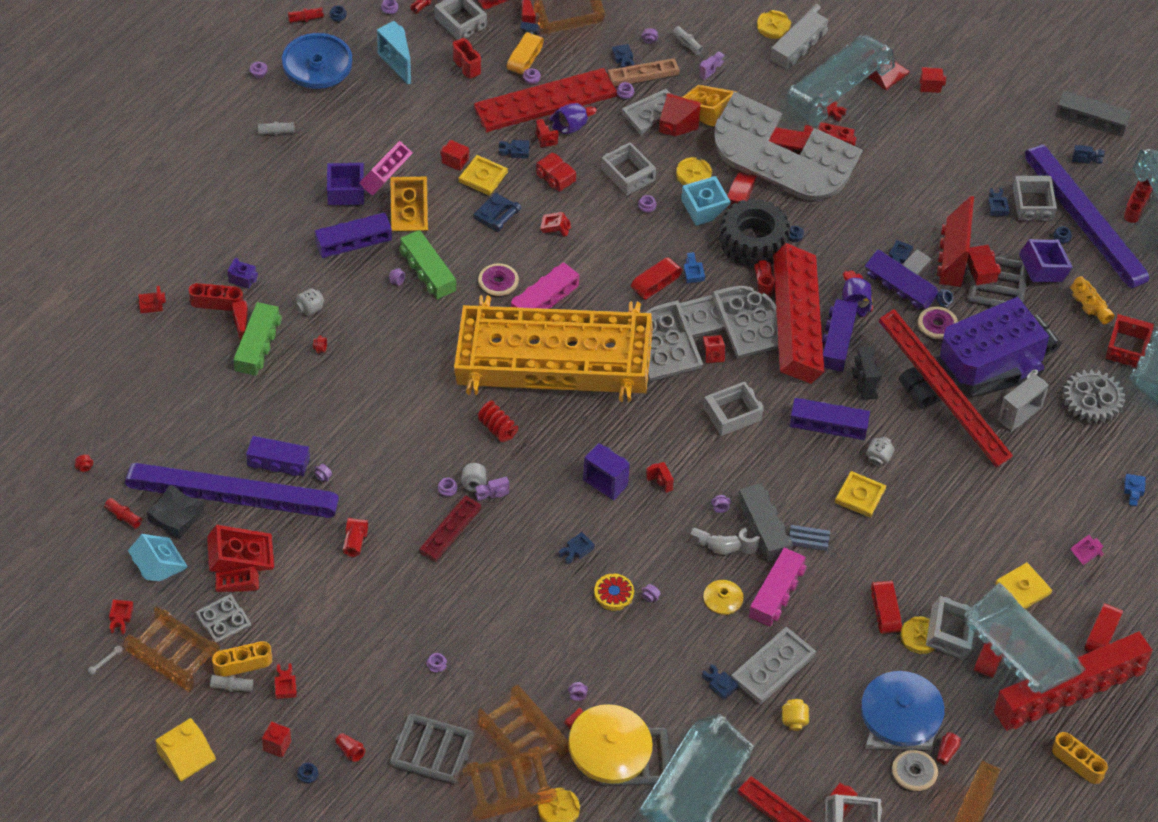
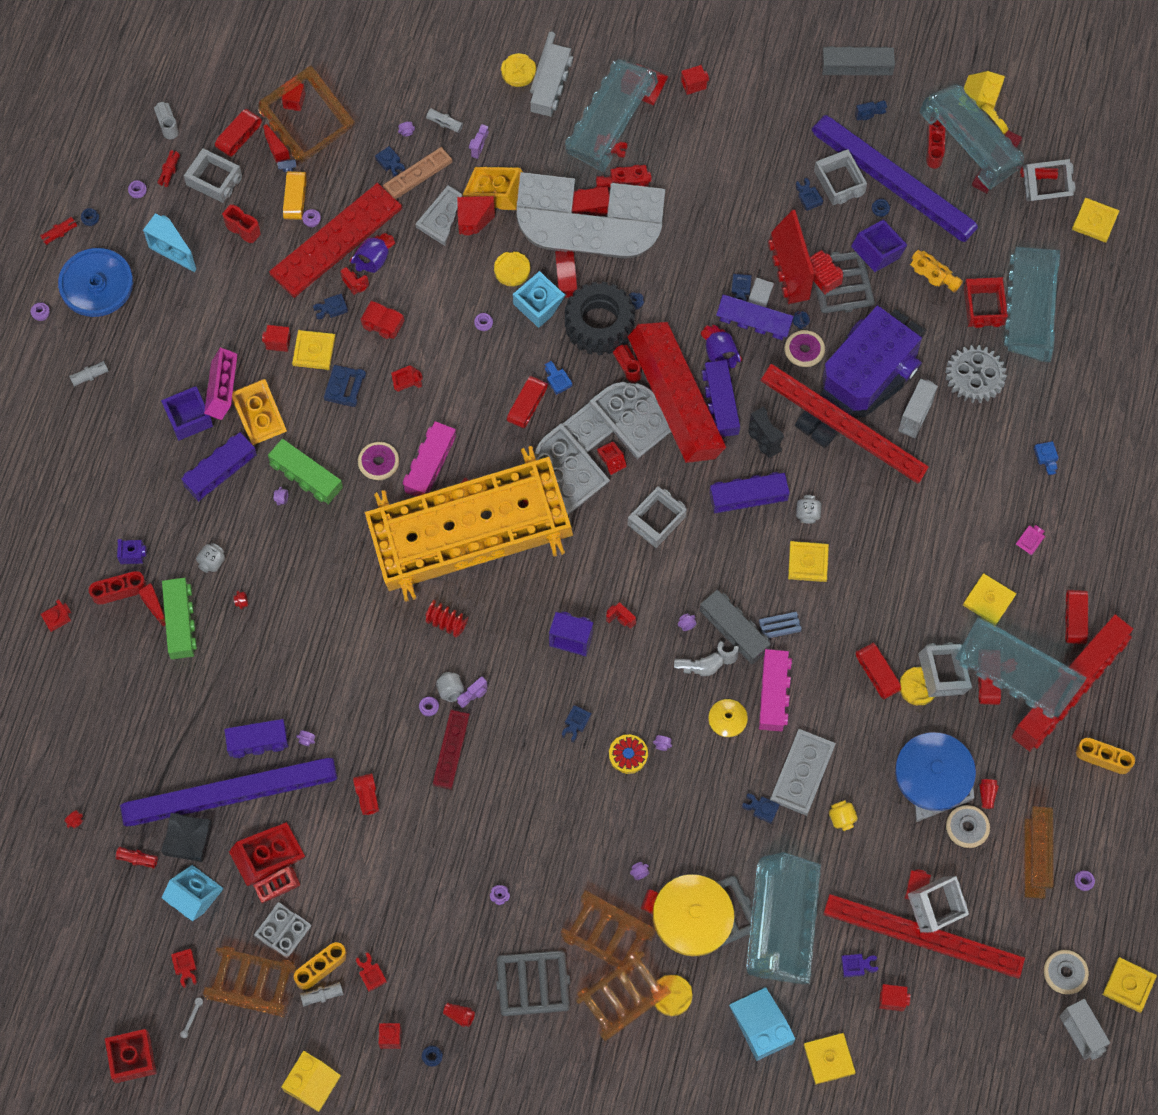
camera: 20 degrees left, 15 degrees up
(34, 666) = (130, 1056): none -> red brick
(625, 90) = (409, 197): medium lavender plate -> none
(637, 180) = (470, 291): light grey window -> none

